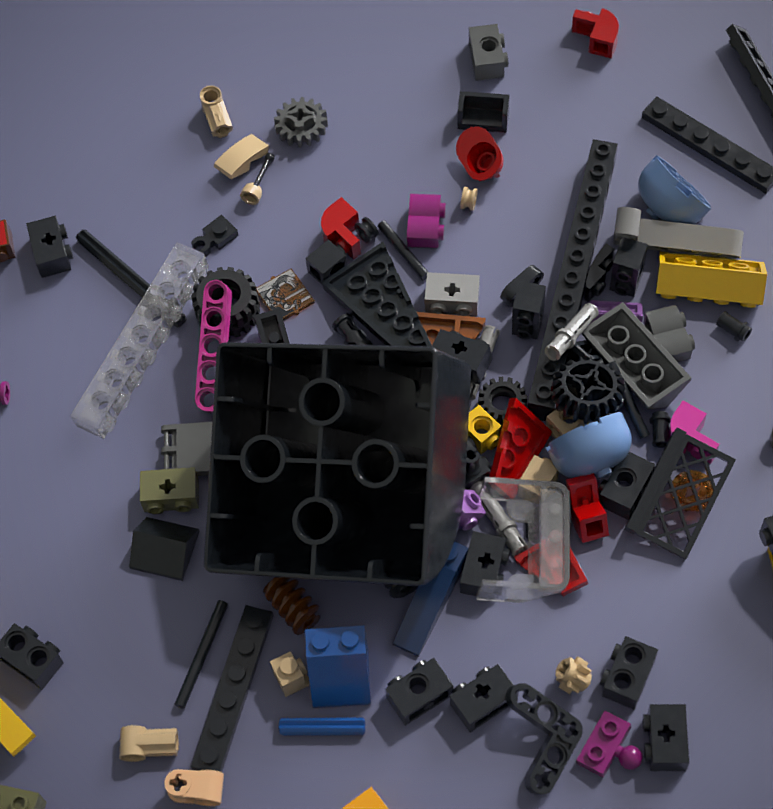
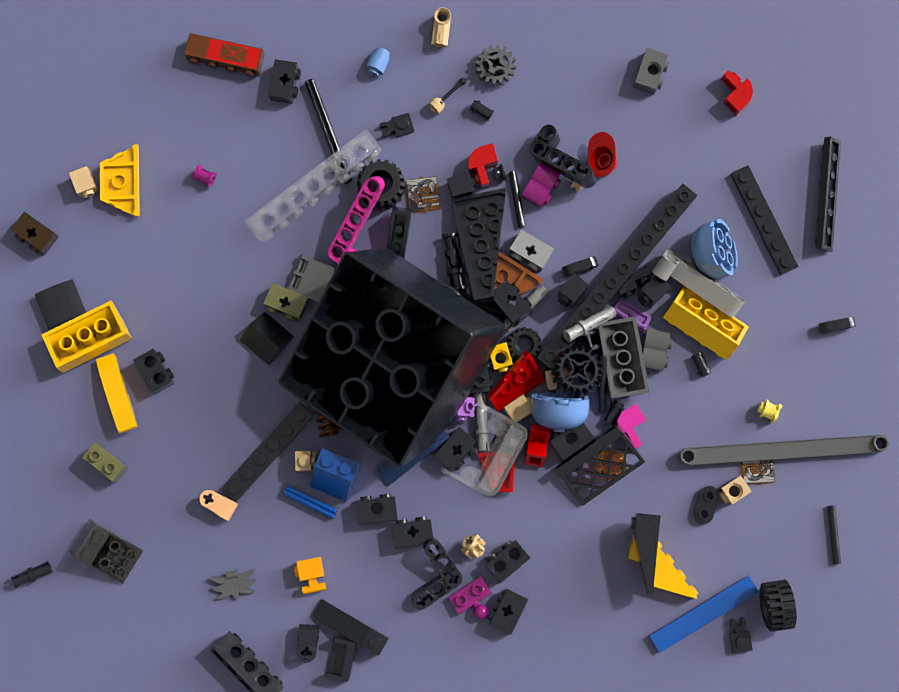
camera: 20 degrees right, 20 degrees up
(139, 743) = (199, 461): tan piece -> none
(156, 178) = (378, 61): none -> medium blue brick
(201, 654) = (258, 420): black bar -> none
(238, 157) = (442, 72): tan slope -> none
(308, 175) = (481, 110): none -> black pin
(446, 180) = (564, 162): none -> black beam
(483, 111) = (623, 119): black panel -> none

